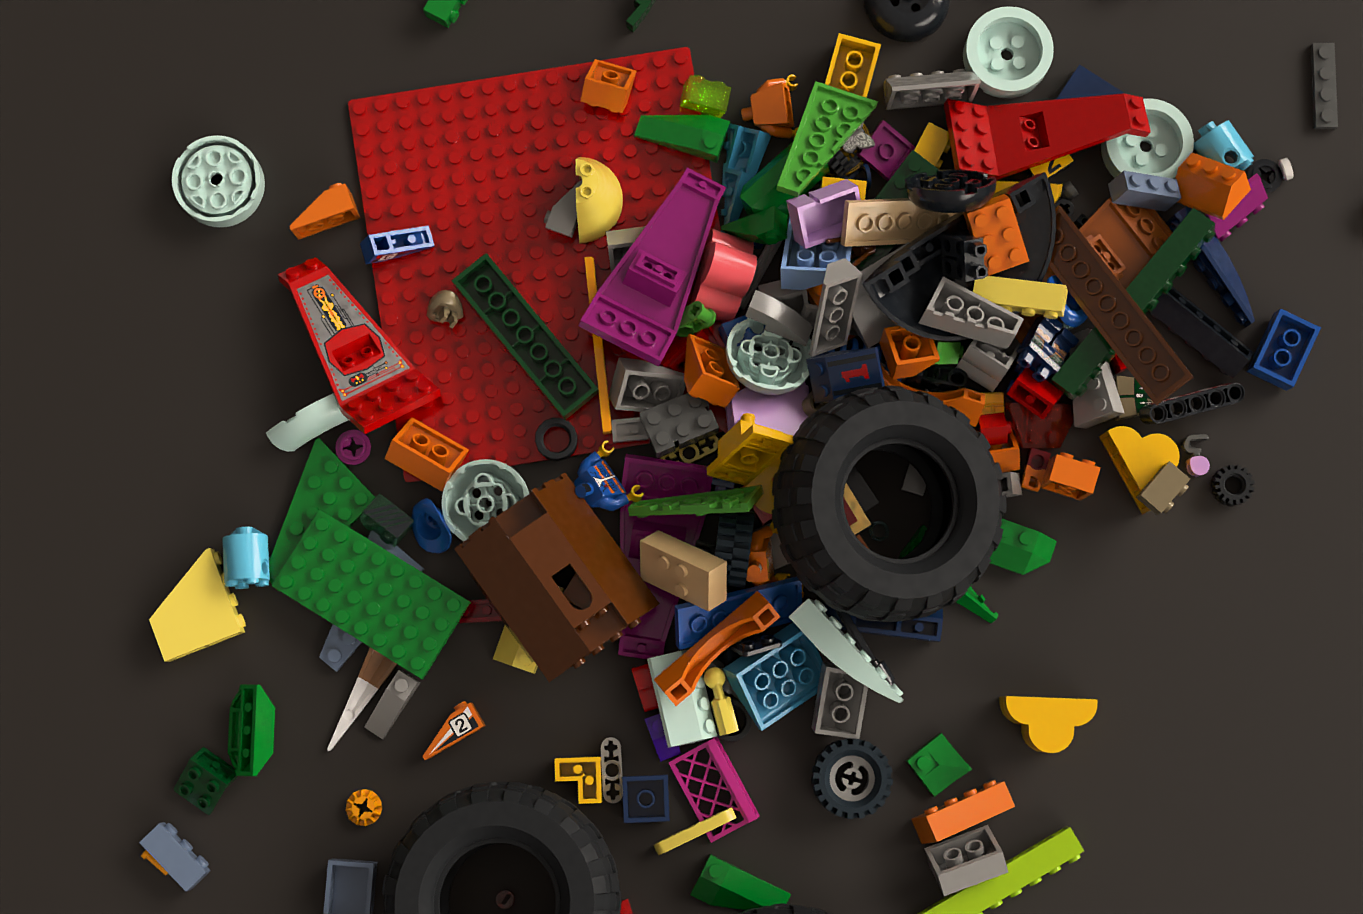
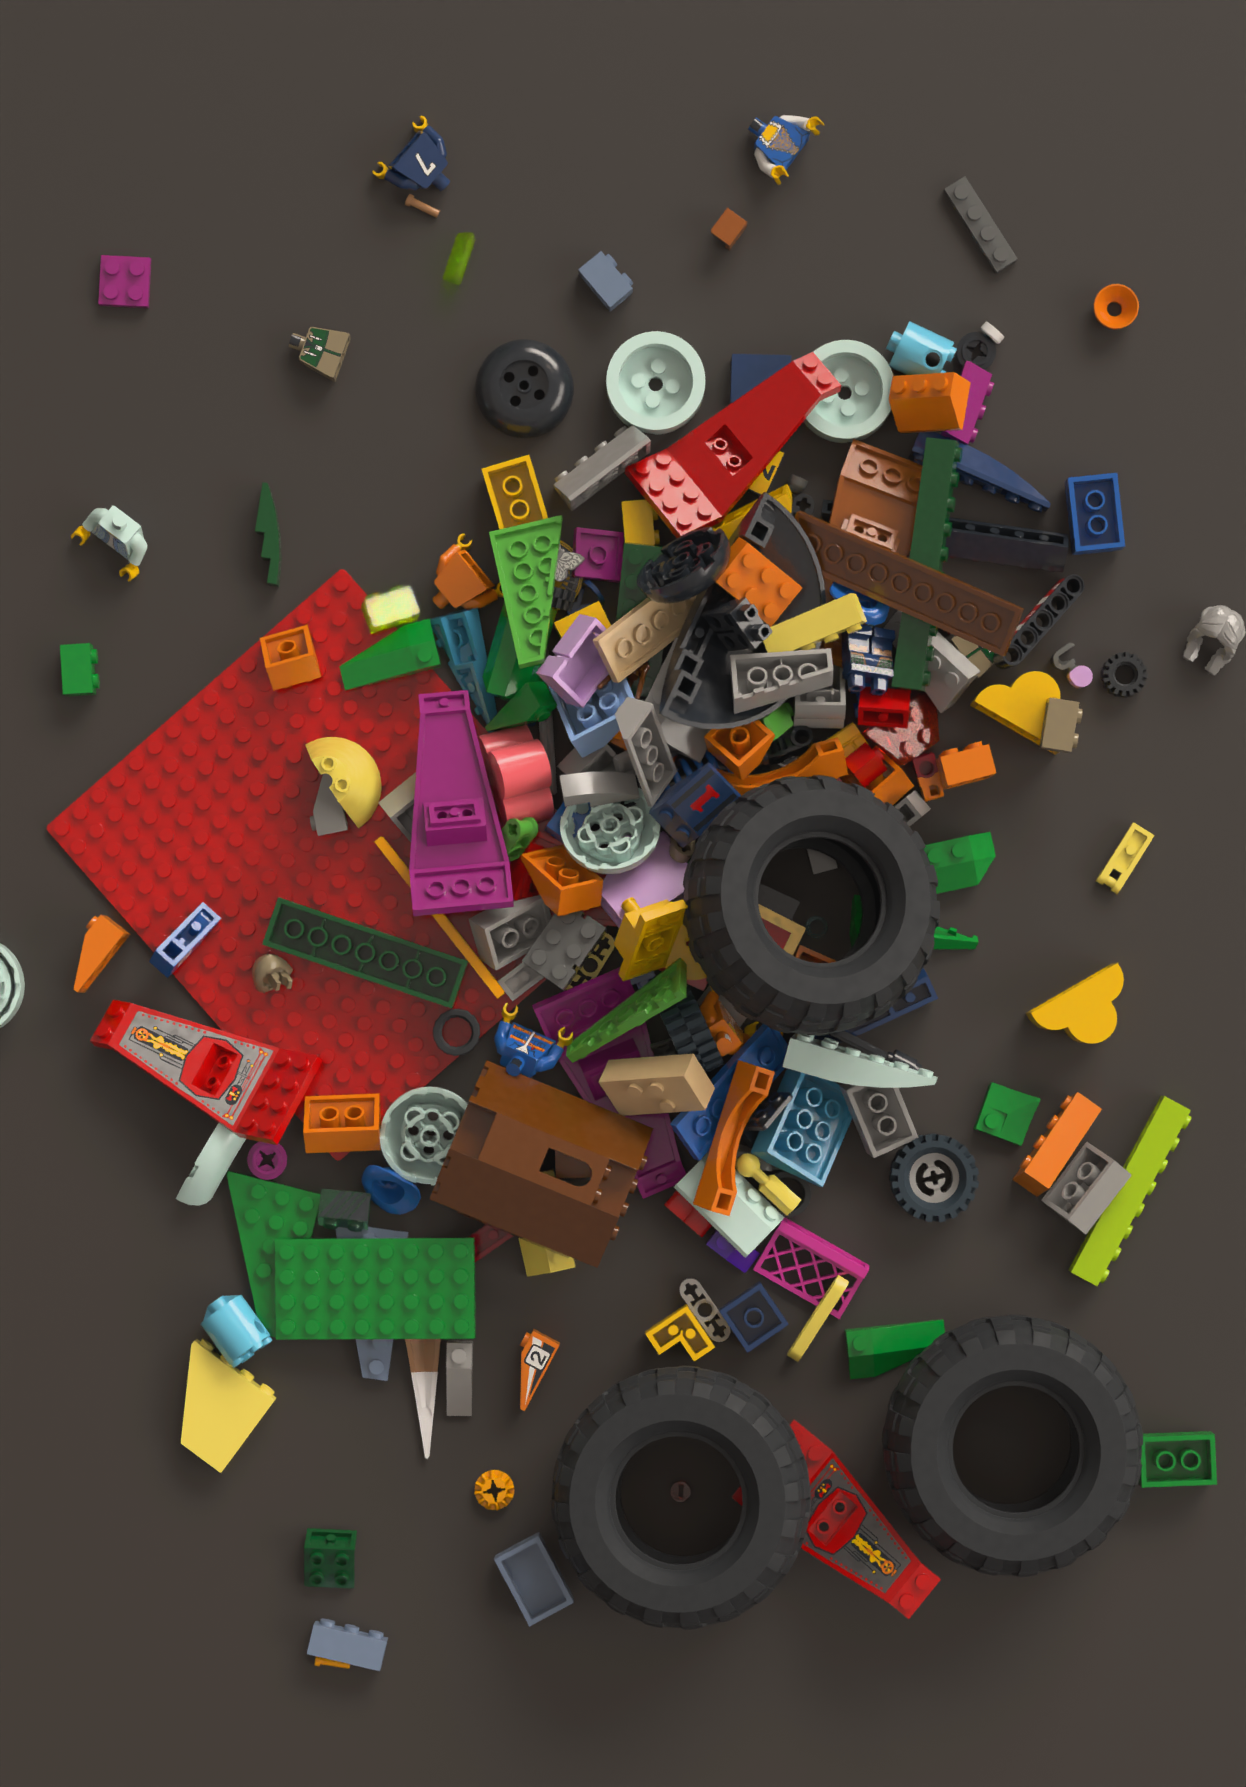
camera: 30 degrees left, 5 degrees up
(250, 730) = (343, 1486): green wedge -> none
(1144, 191) = (870, 443): sand blue brick -> none
(1150, 624) = (1125, 857): none -> light yellow plate
(1333, 491) = (1217, 623): none -> light grey hair

